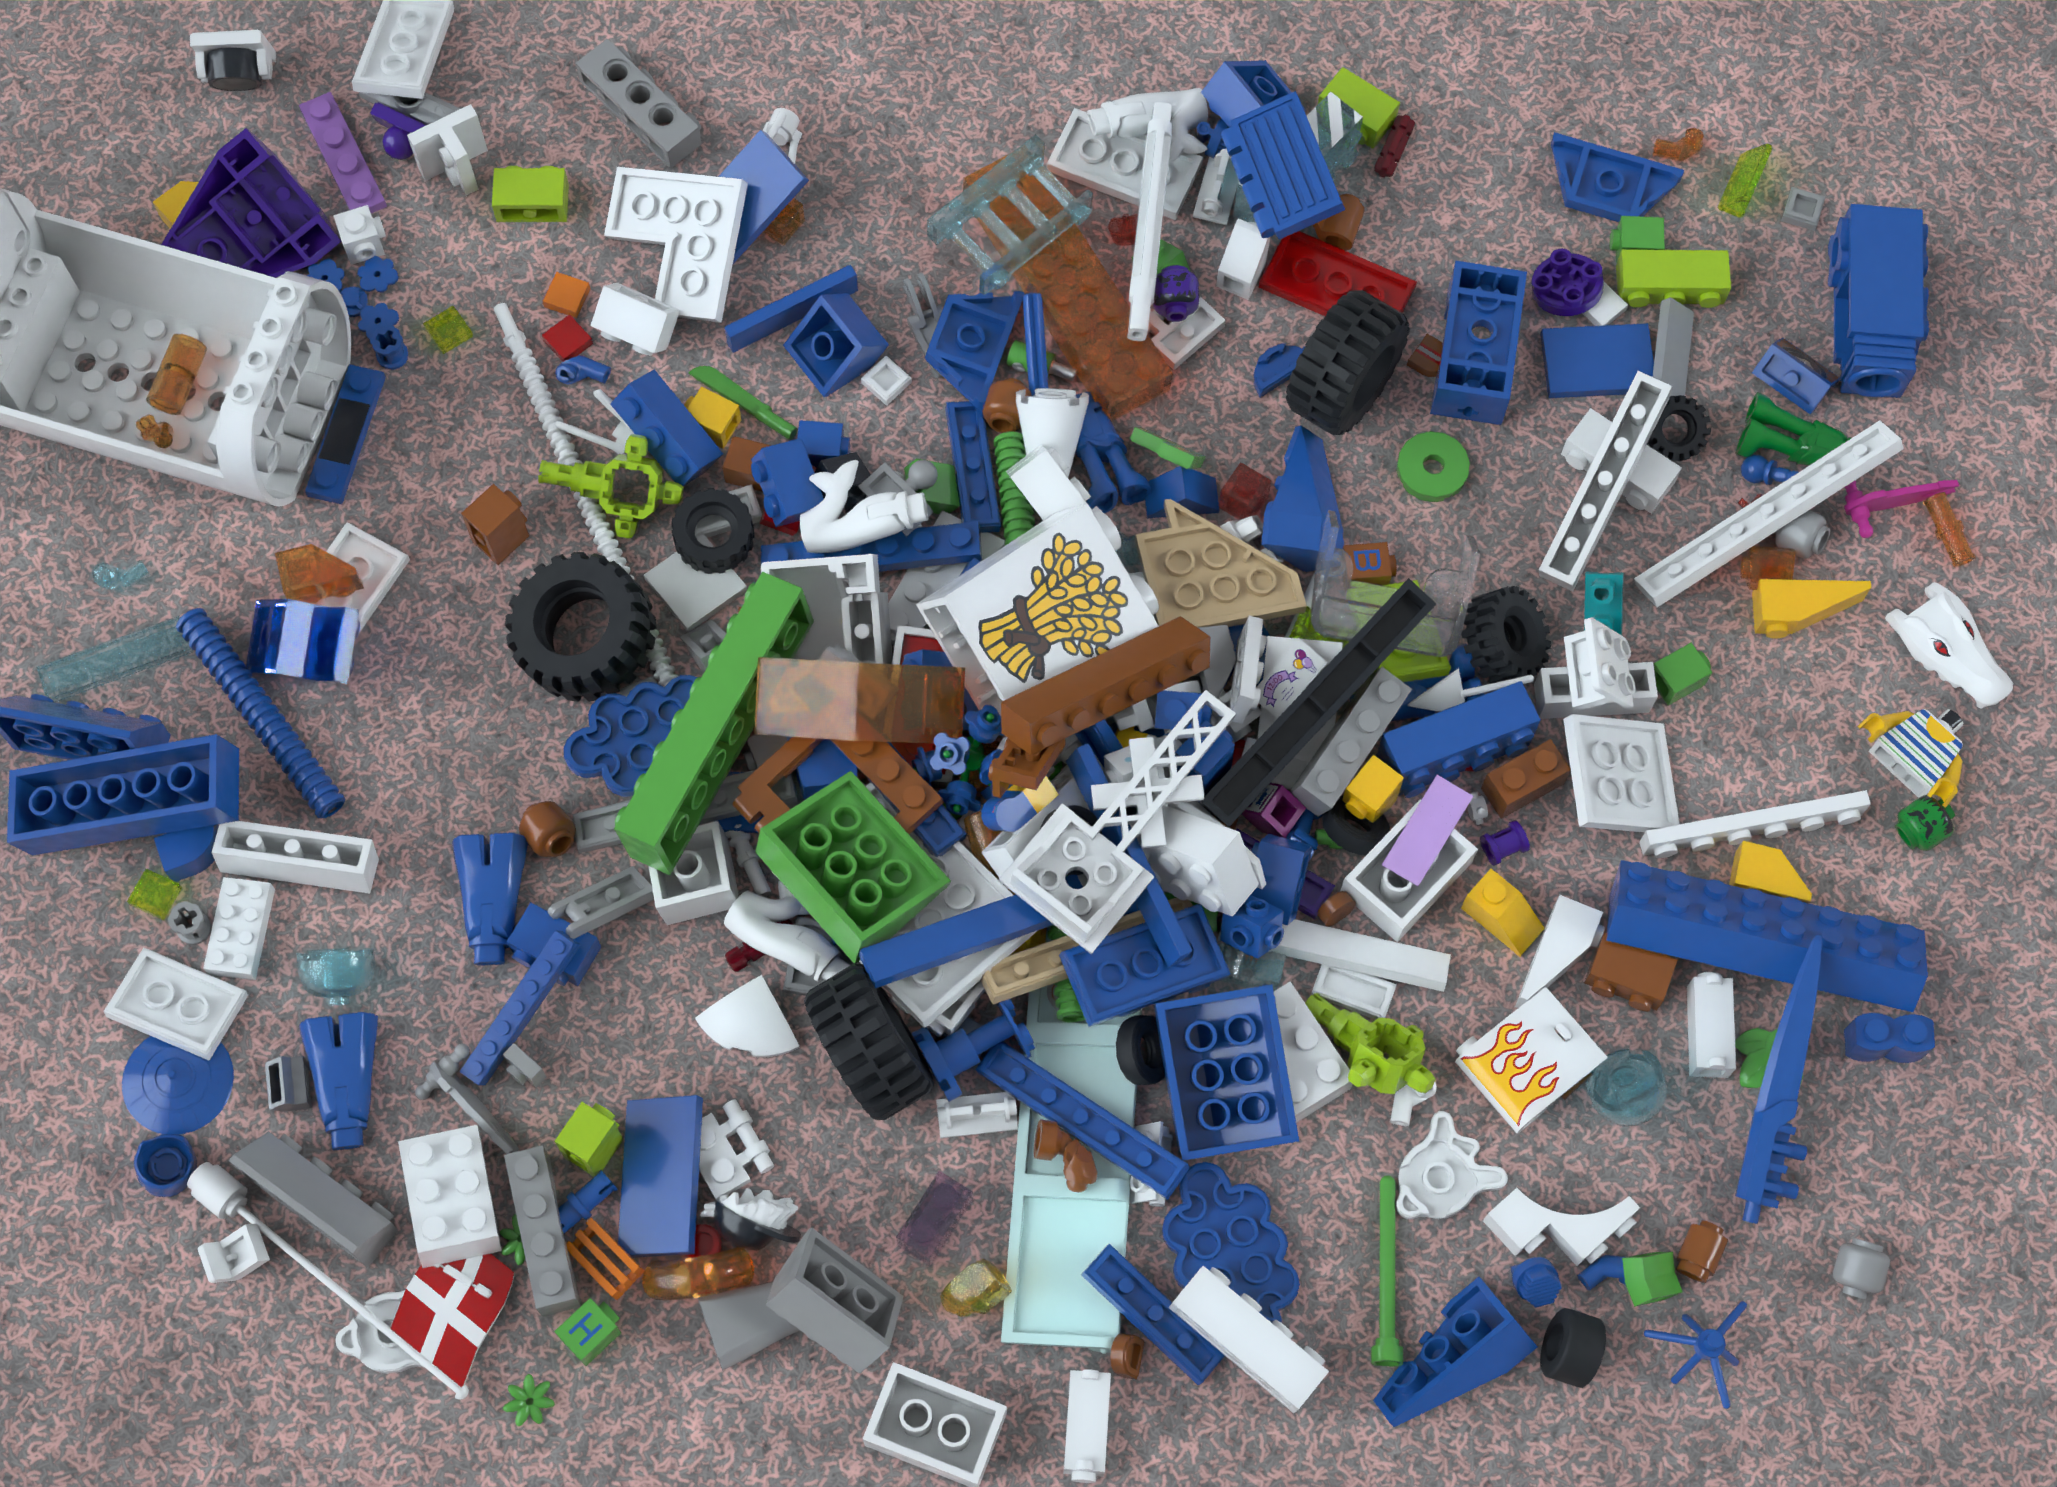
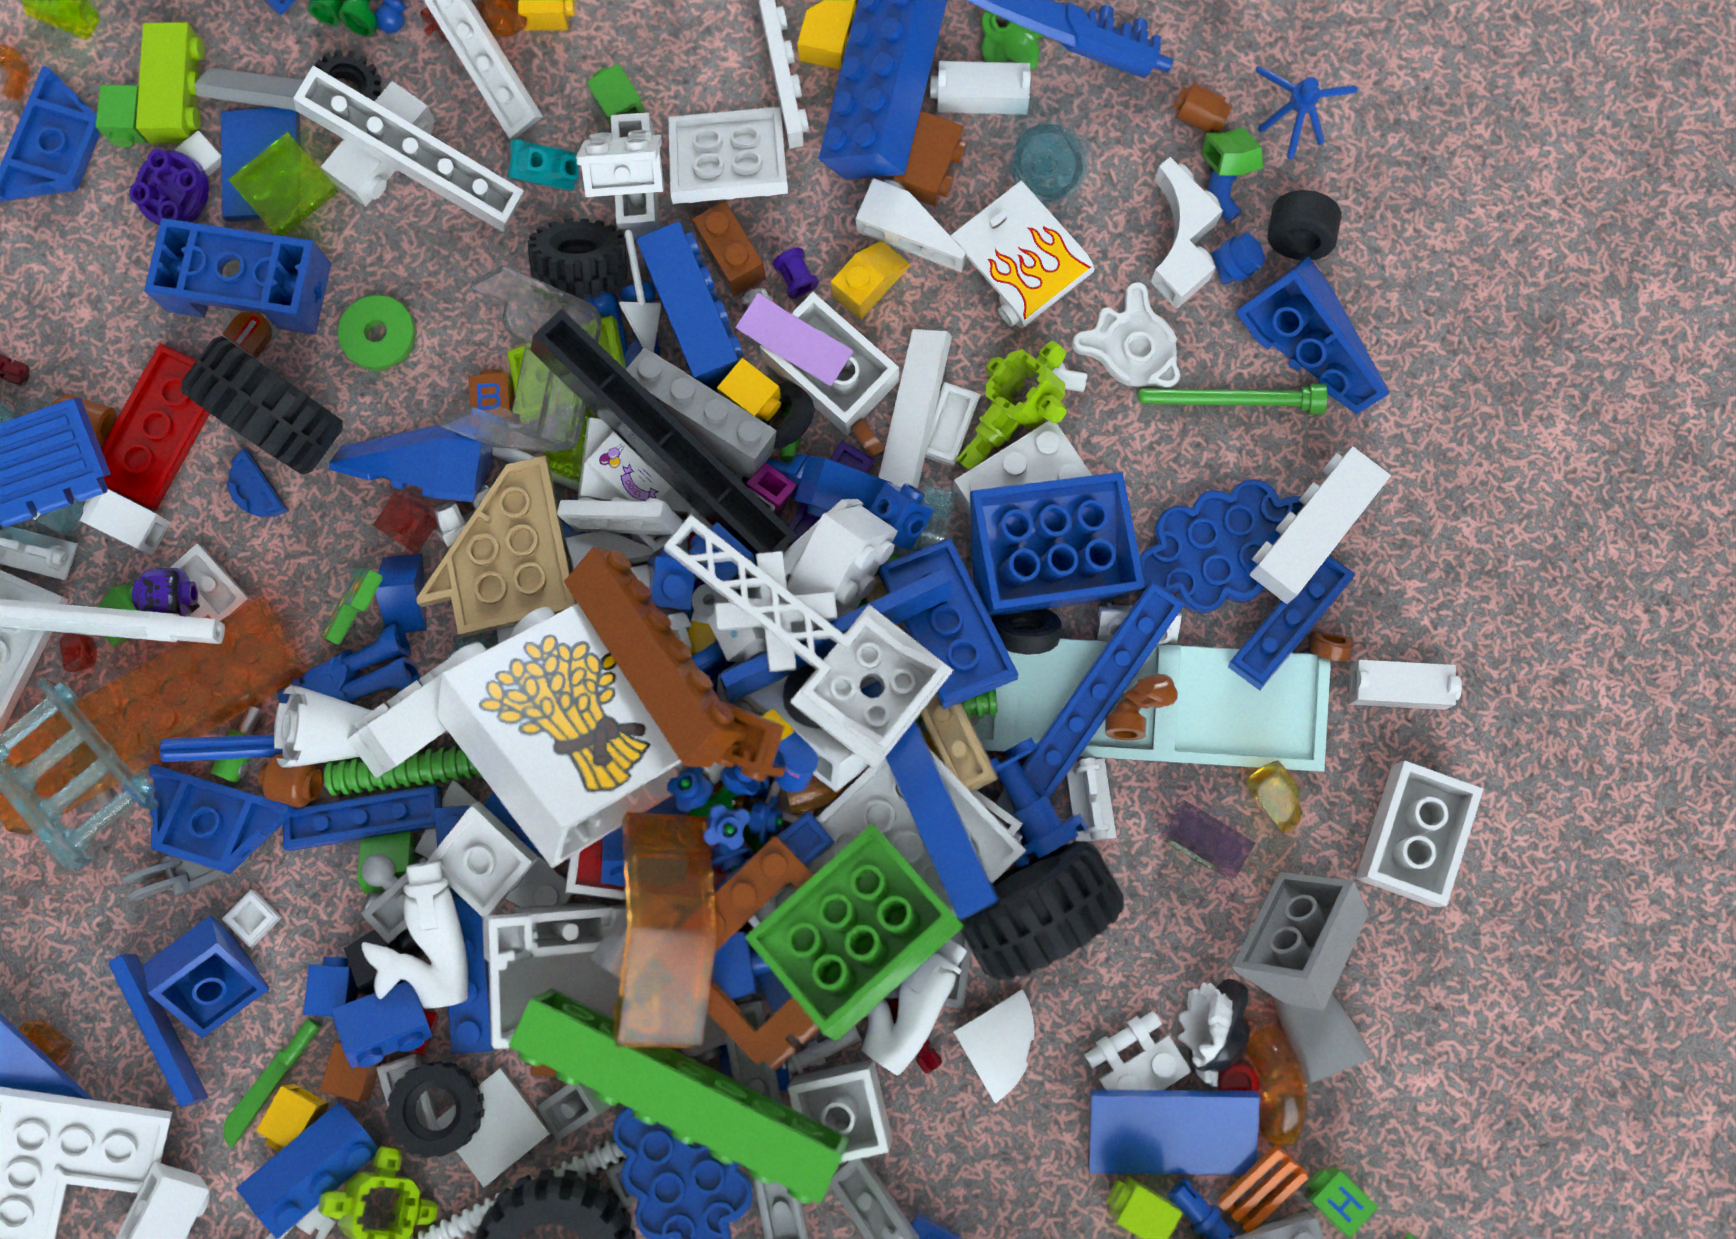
camera: 85 degrees left, 10 degrees up
(928, 557) = (482, 859): none -> white tile
(1572, 377) = (283, 185): none -> clear neon green plate

